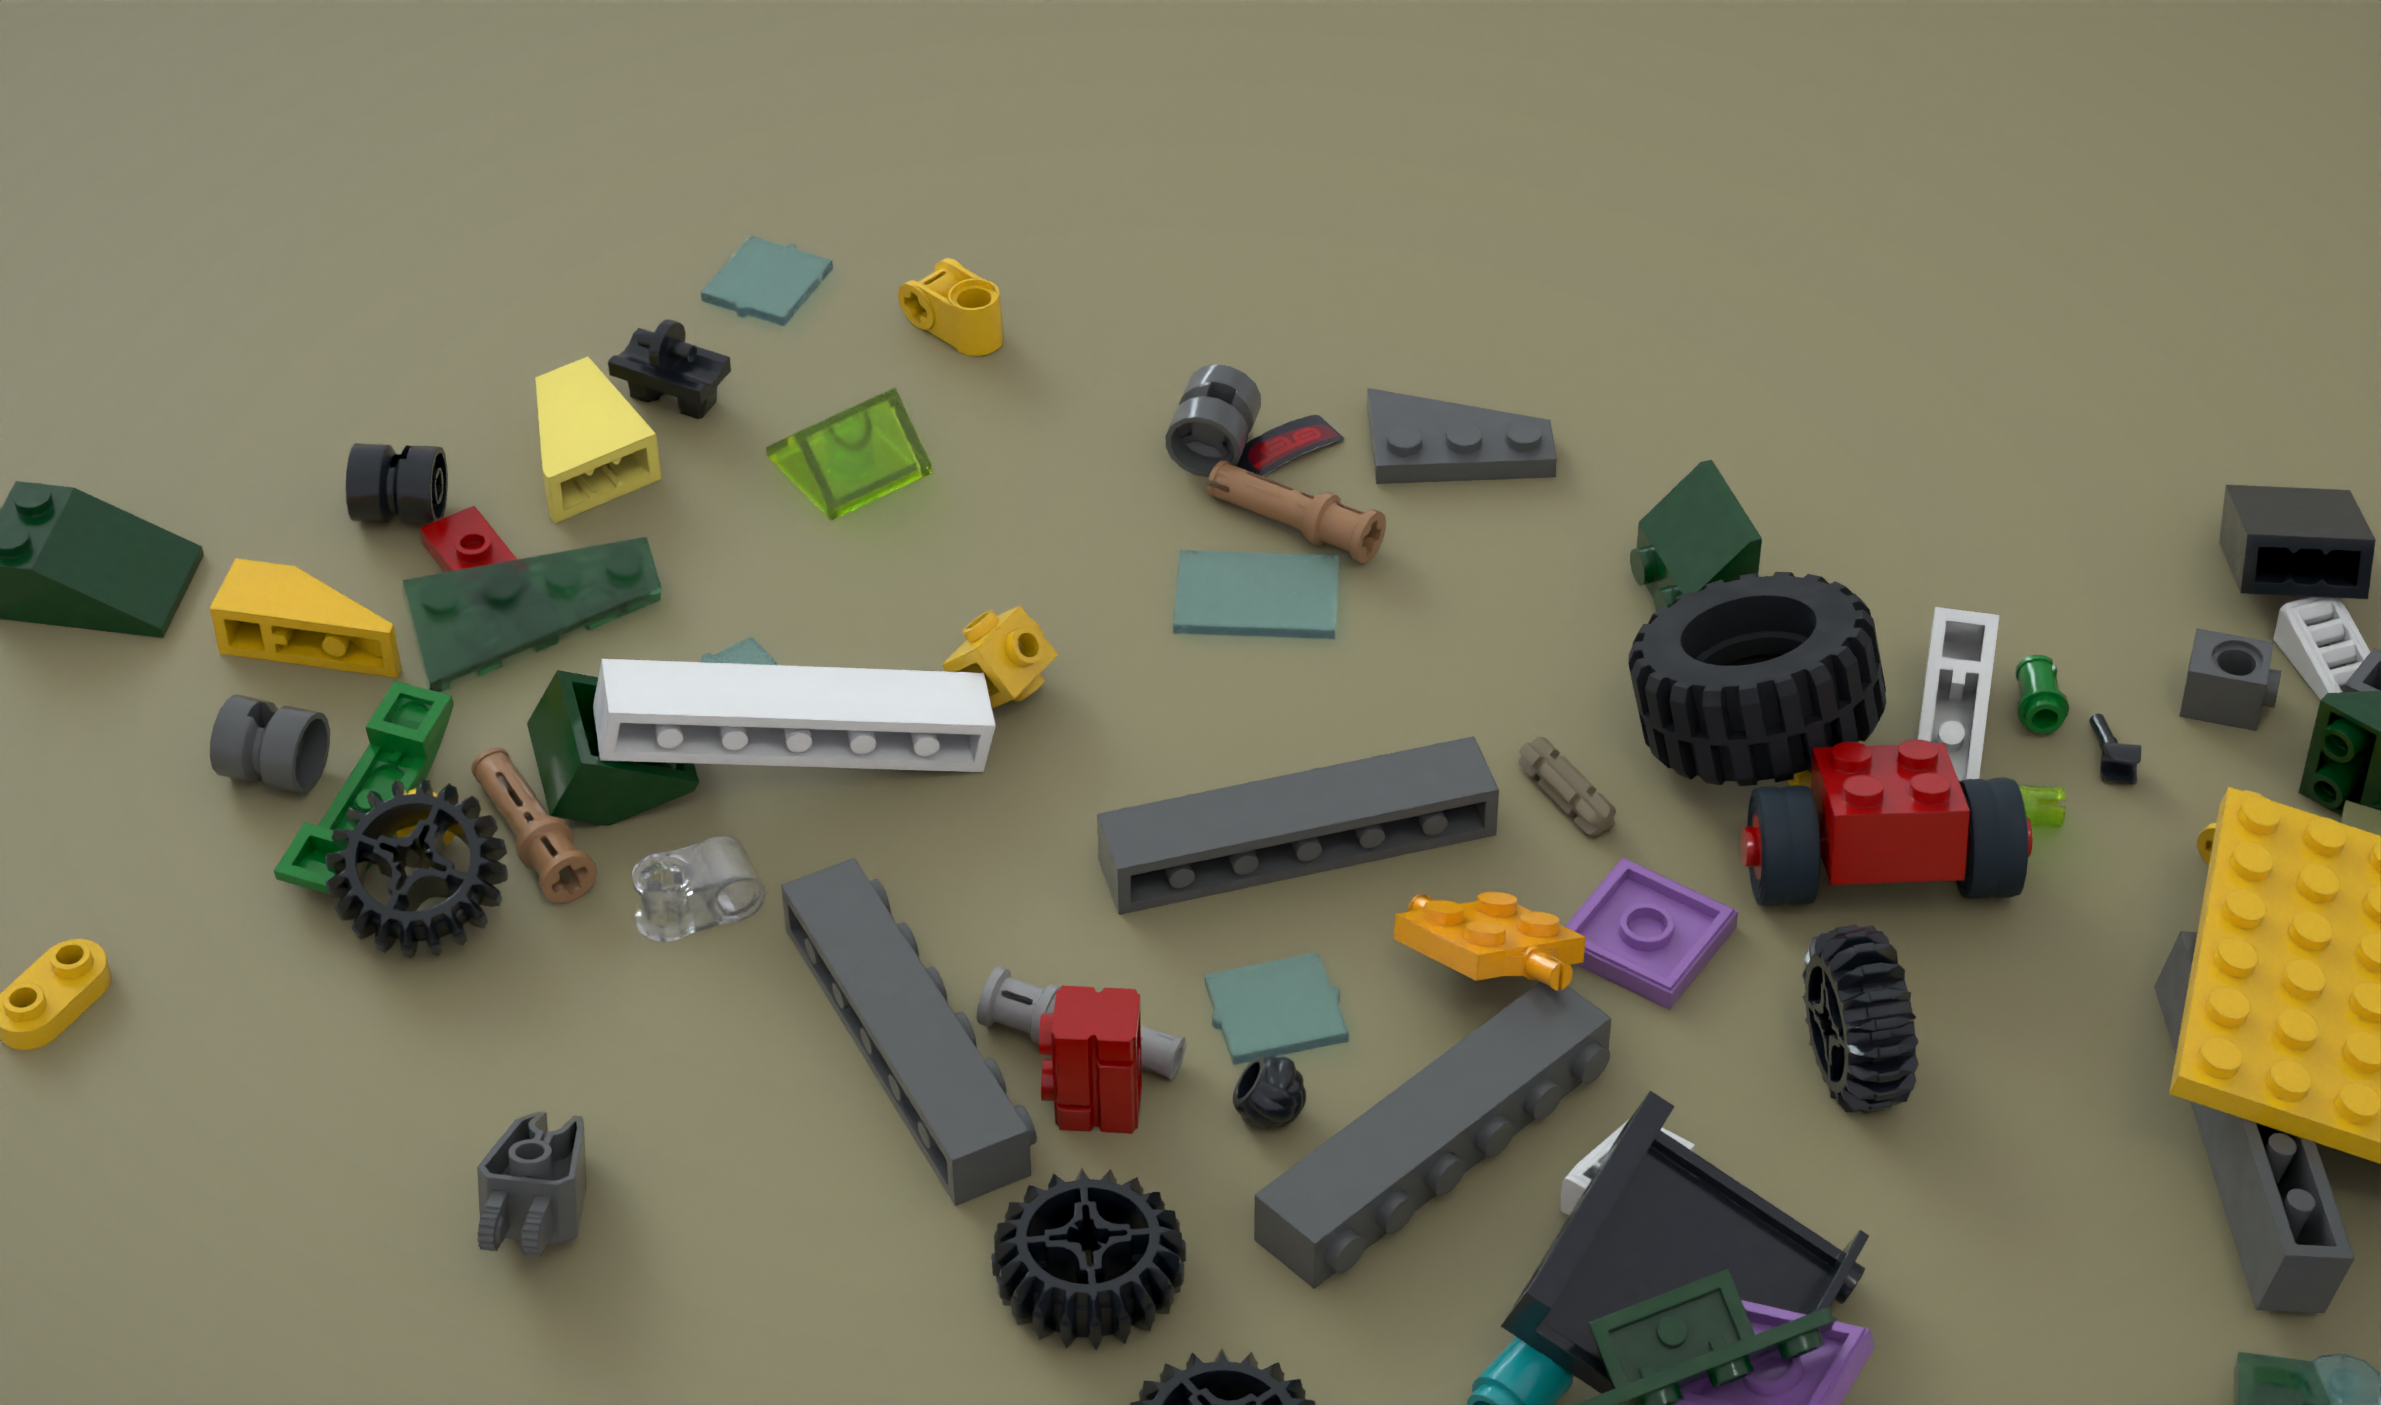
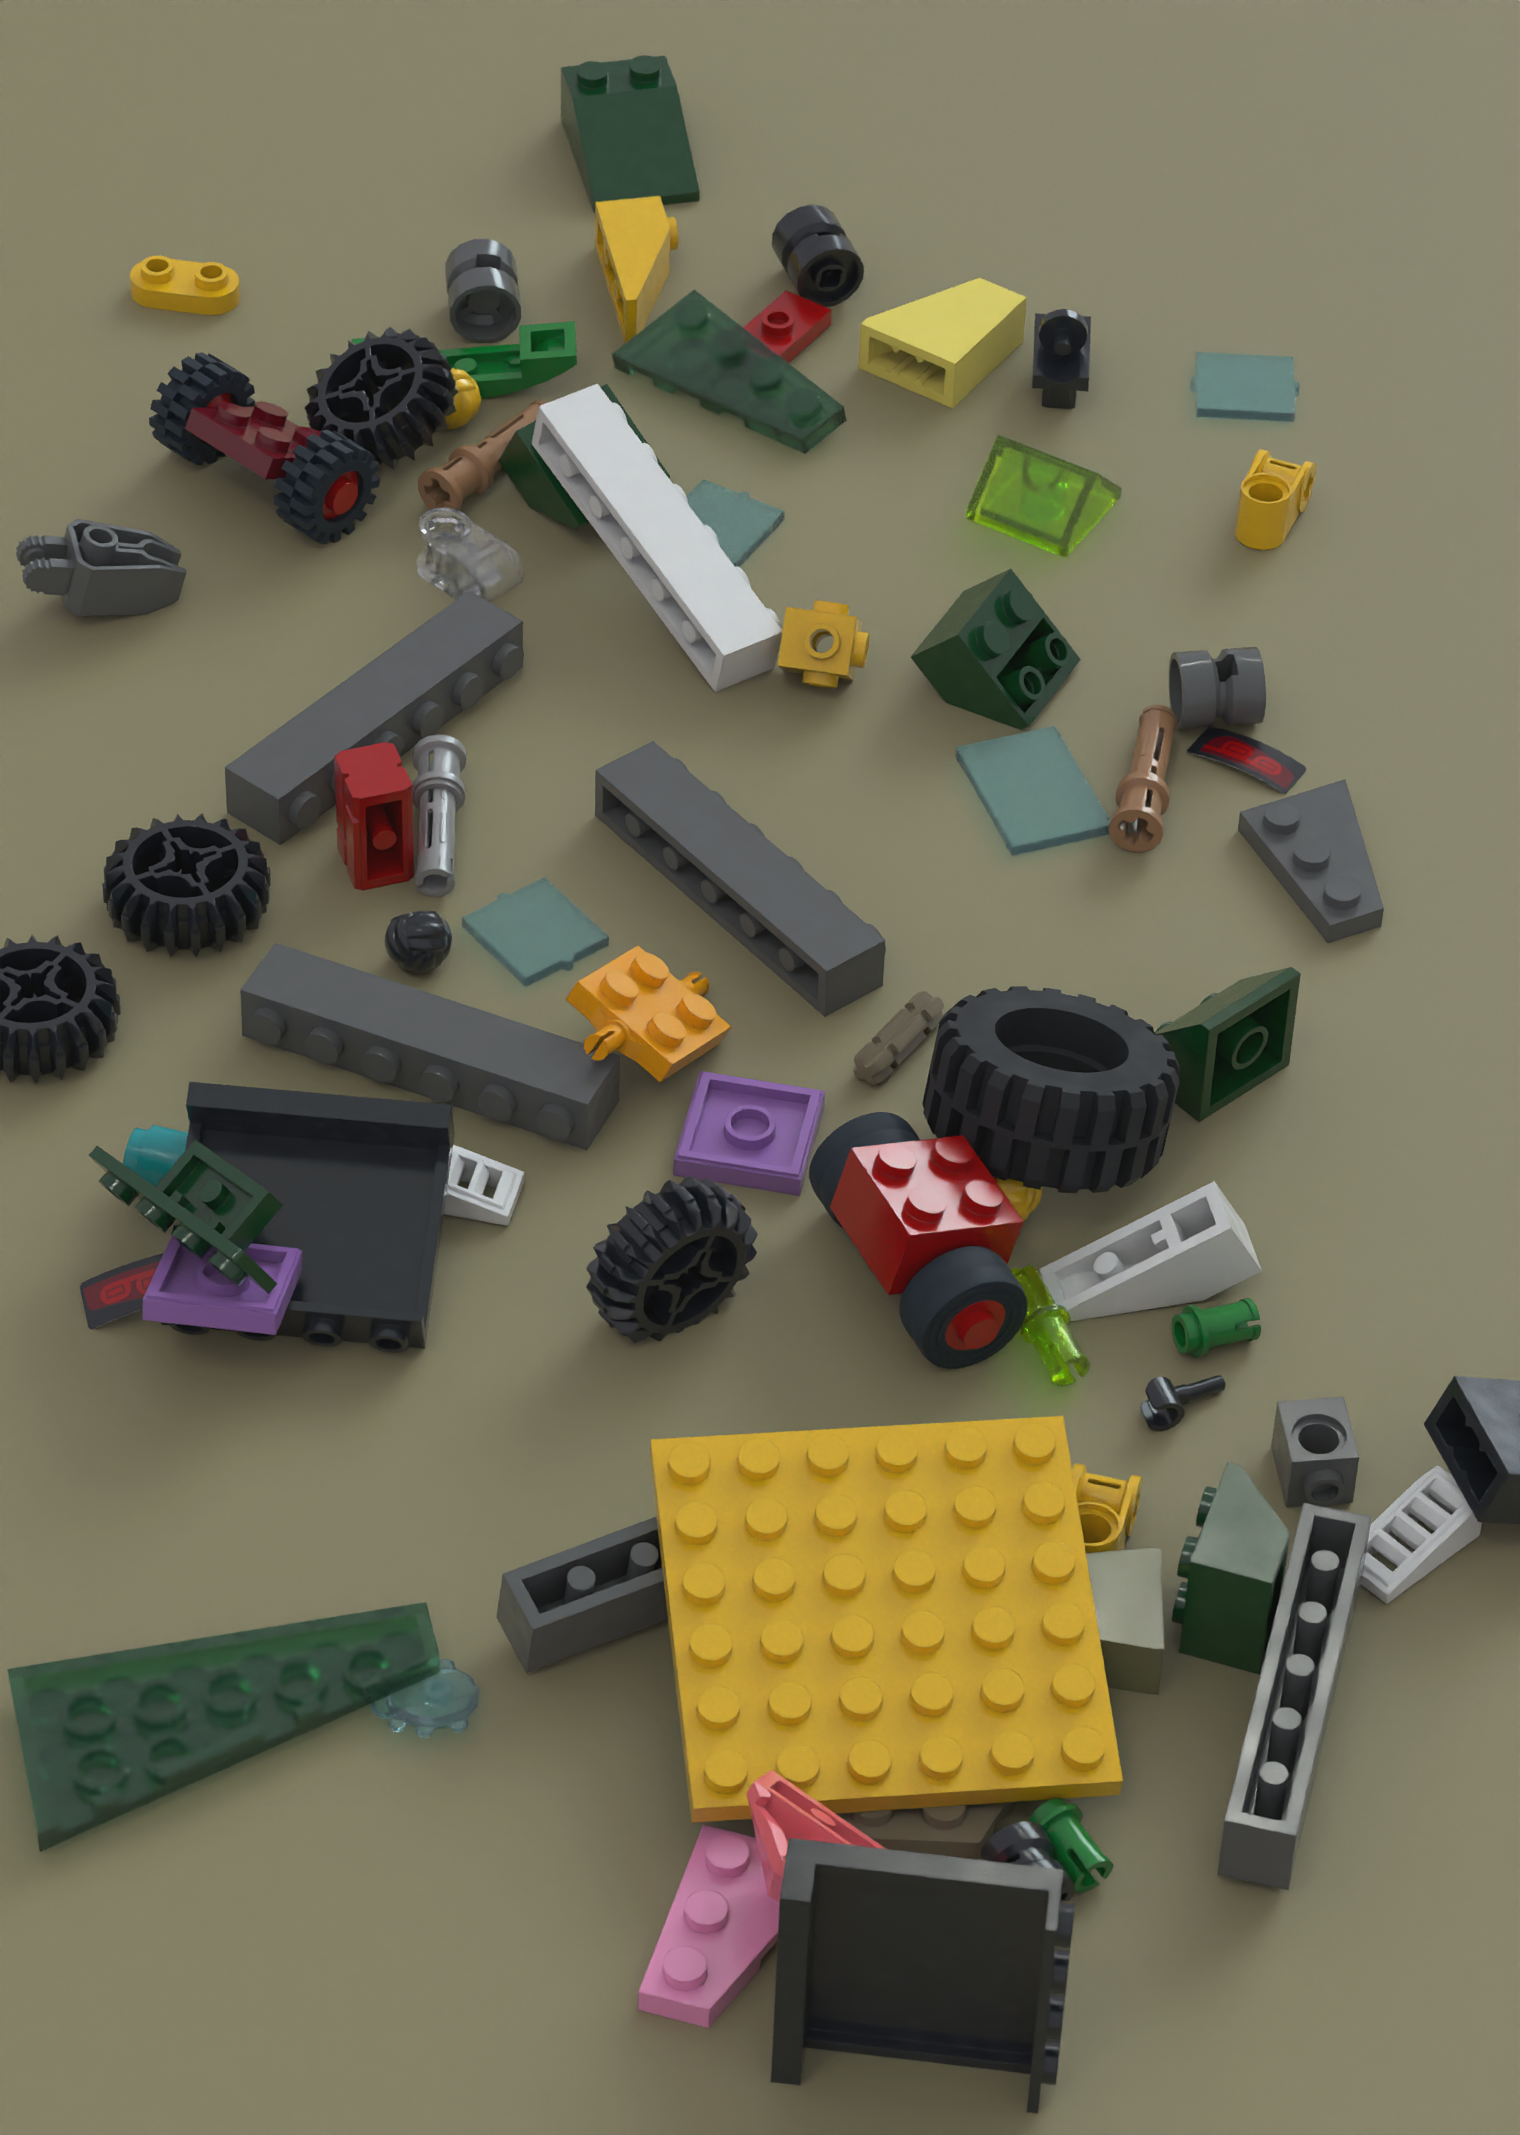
camera: 65 degrees right, 0 degrees up
(428, 980) = (319, 472): none -> black plate
(1072, 547) = (996, 653): none -> dark green slope

